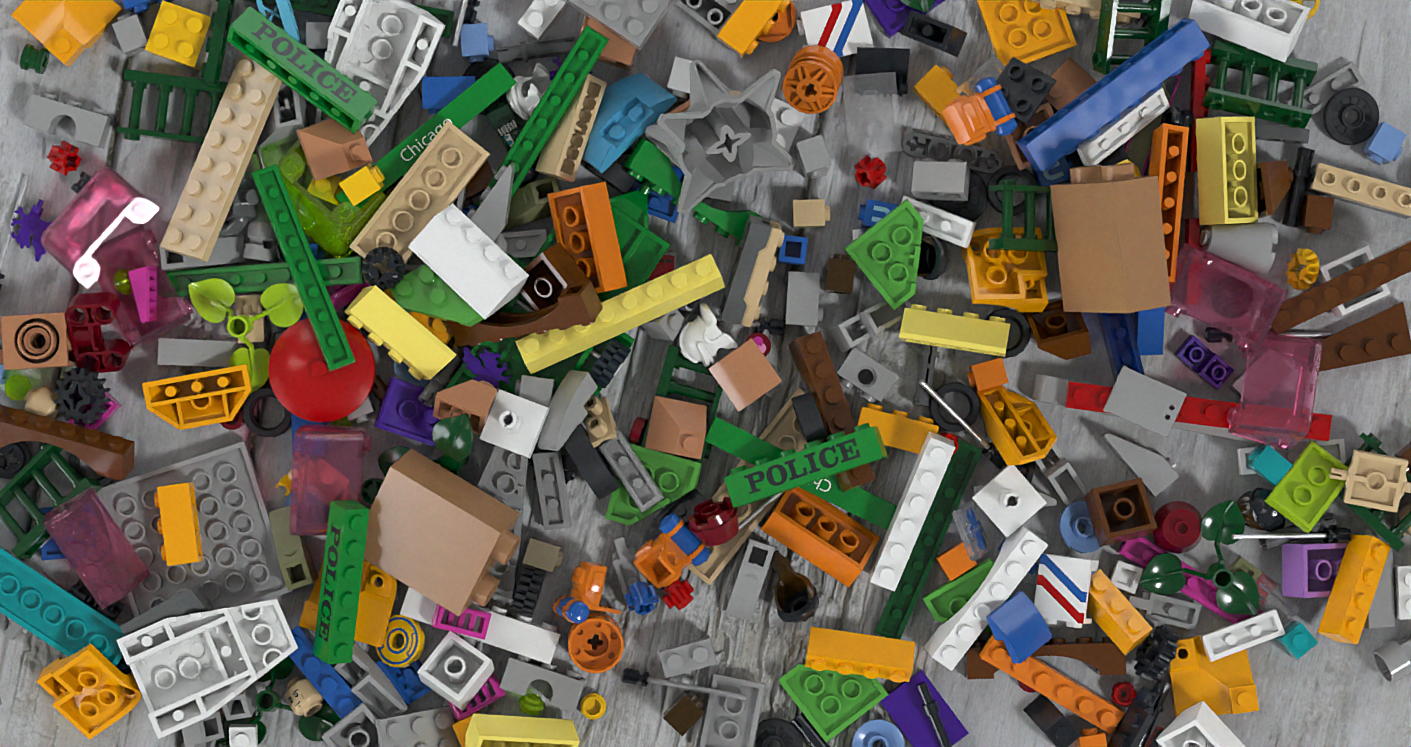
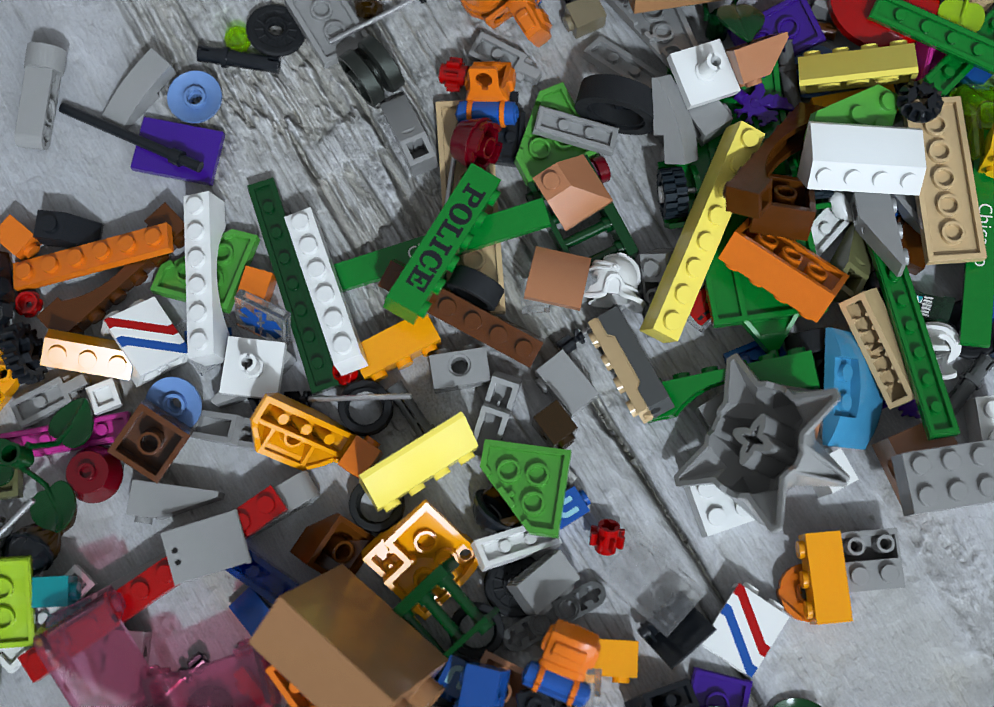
camera: 140 degrees right, 10 degrees down
(599, 420) = (635, 146): tan hips -> none
(641, 598) = (479, 42): blue gear -> none
(687, 656) = (405, 33): light grey brick -> none
(738, 647) = (371, 70): none -> pearl dark grey wheel
(762, 342) = (567, 319): dark red tile -> none
(793, 250) = (611, 414): blue brick -> none
(794, 592) = (362, 150): piece -> none
(810, 213) = (624, 458): tan brick -> none
(813, 157) = (666, 504): light grey brick -> none
(814, 66) = (727, 568): orange wheel -> none
(821, 534) = (380, 214): orange slope -> none
(831, 698) = (265, 103): bright green plate -> none
(860, 654) = (269, 149): light orange brick -> none
(1019, 627) = (155, 273): blue slope -> none
(1204, 362) = (187, 632): dark purple slope -> none

